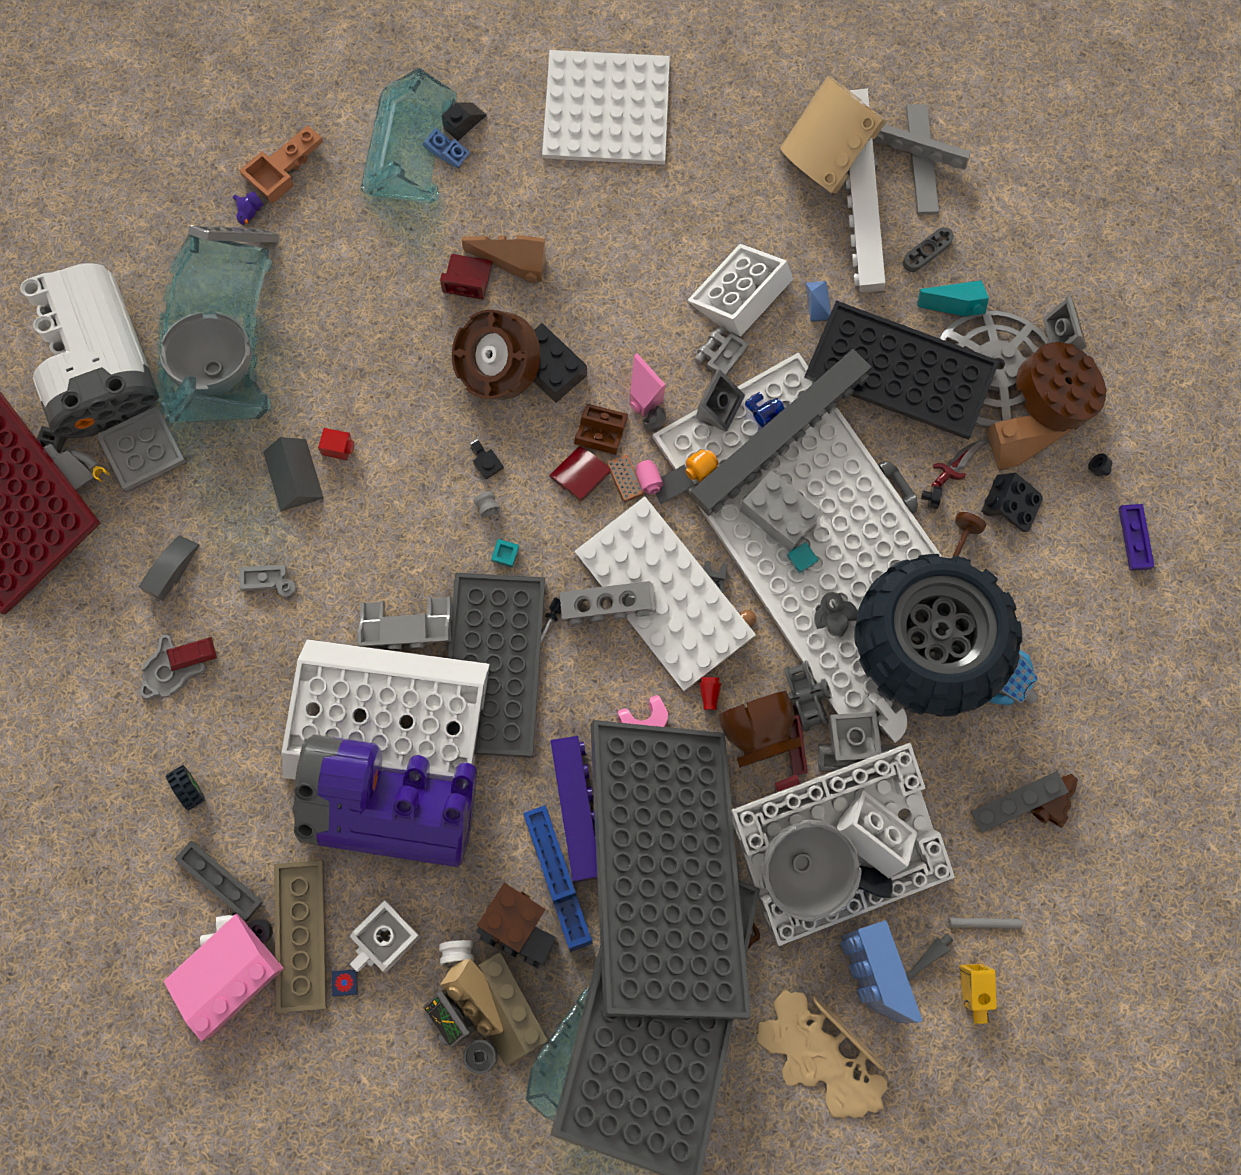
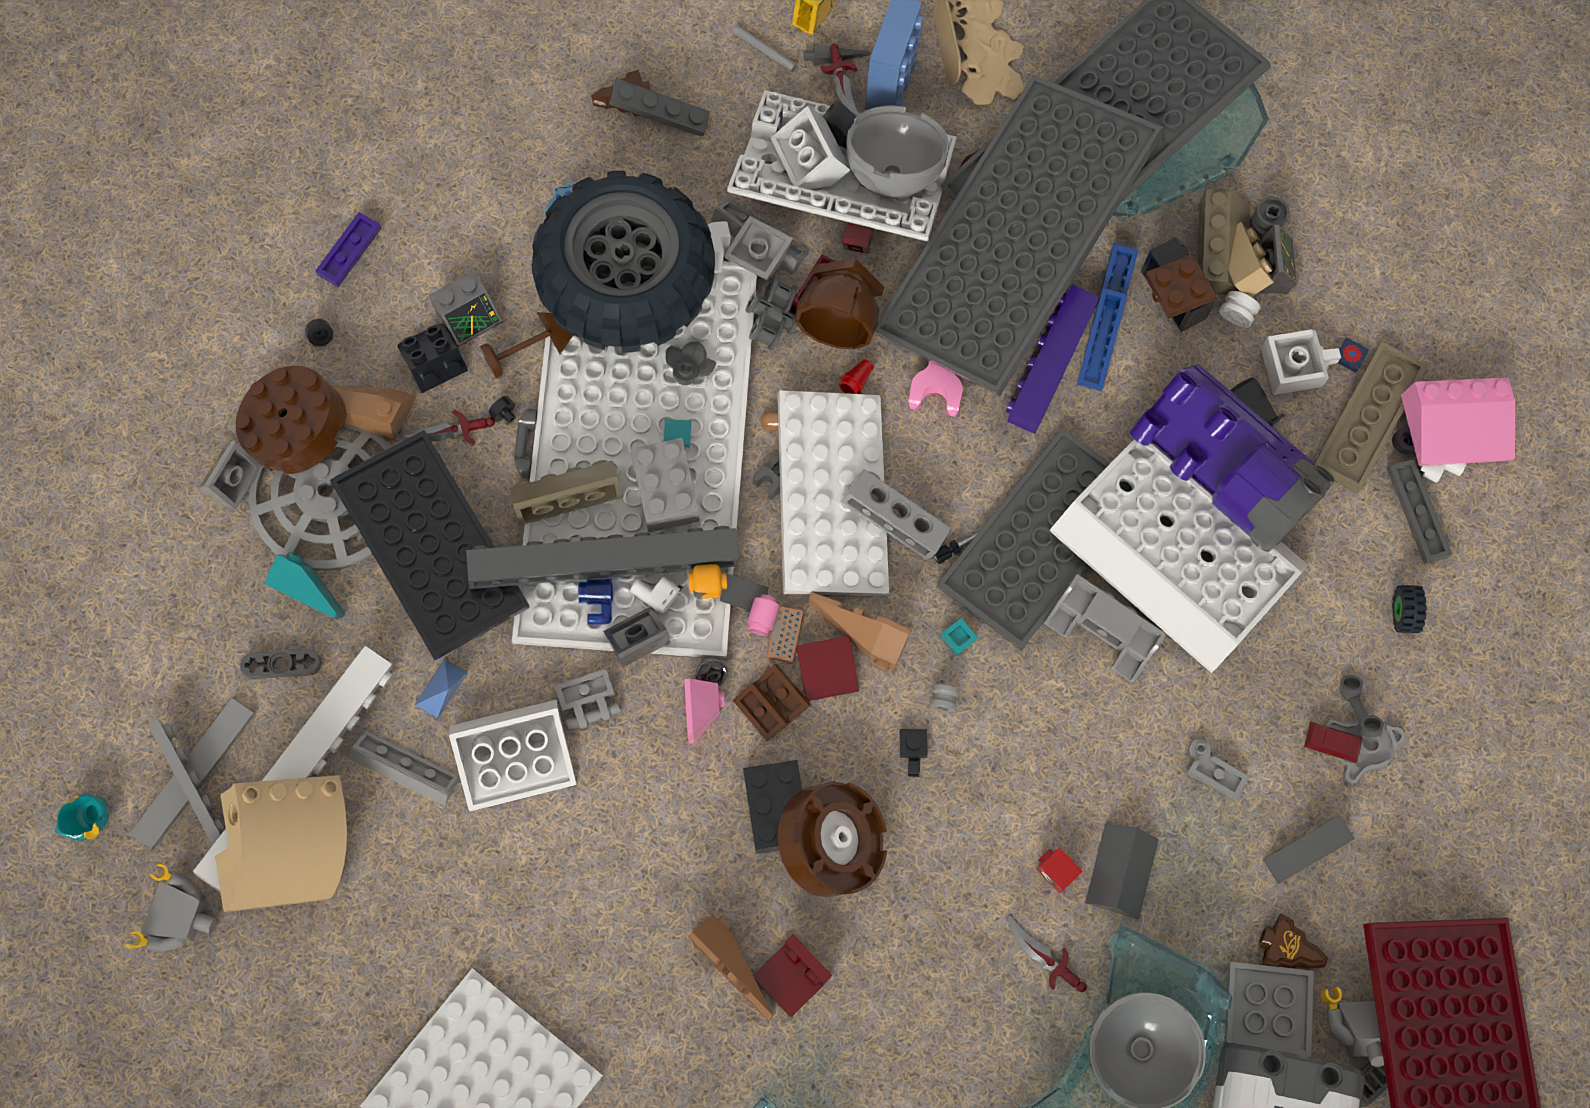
camera: 145 degrees left, 0 degrees up
(149, 495) = (1288, 946): none -> reddish brown rock
(168, 674) = (1370, 725): none -> dark grey bar
(312, 390) = (1045, 957): none -> piece
(398, 881) = (1253, 395): none -> black piece
(565, 510) = (877, 639): none -> medium nougat wedge
(725, 437) = (660, 597): none -> white piece
(794, 243) = (408, 770): none -> light grey slope
(843, 459) = (565, 492): none -> dark tan slope
(861, 73) = (173, 915): none -> light grey torso
(904, 931) = (842, 81): none -> piece
(960, 91) = (82, 817): none -> teal hair
(1020, 549) = (465, 308): none -> slope

